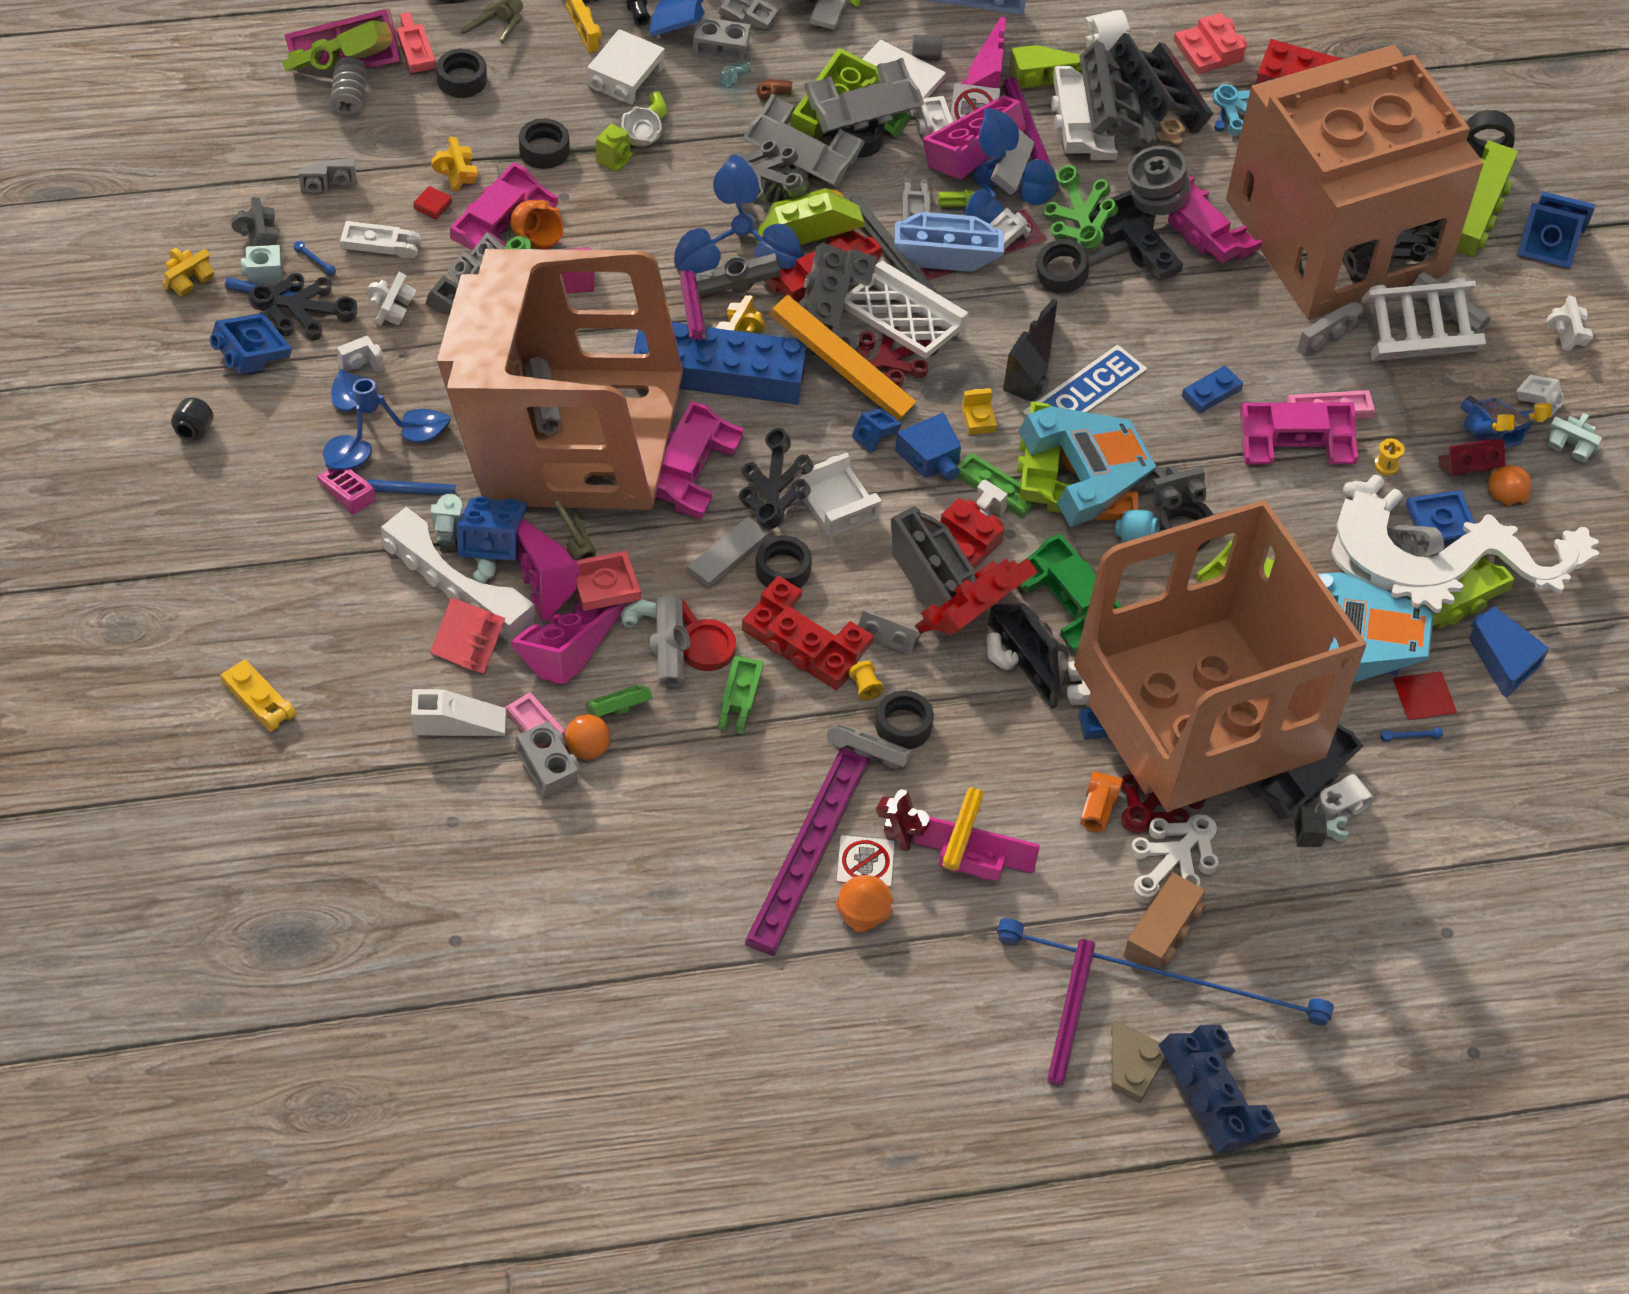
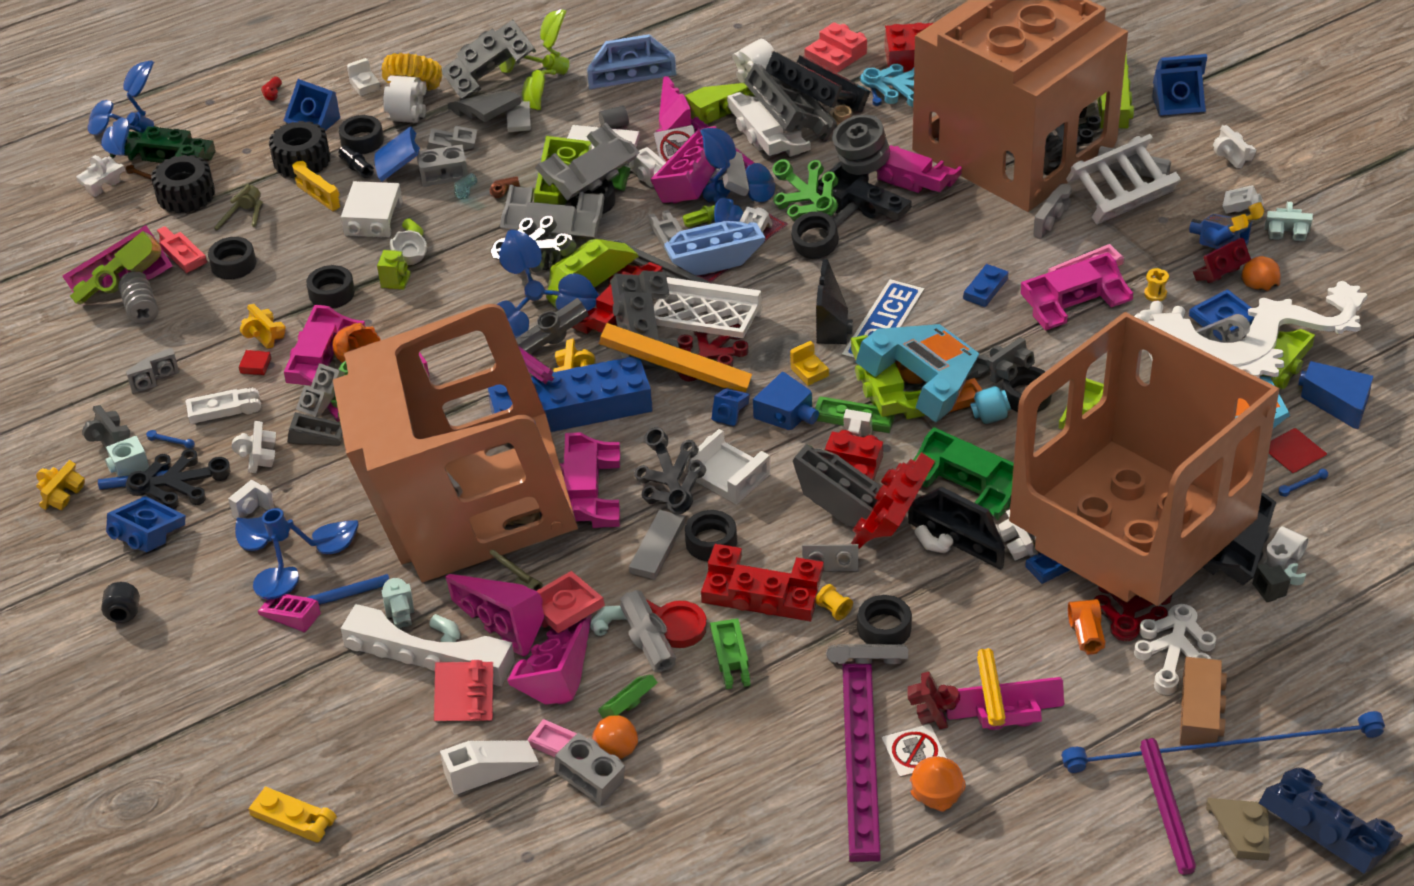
camera: 15 degrees left, 10 degrees down
(490, 528) = (441, 595): blue bracket -> none

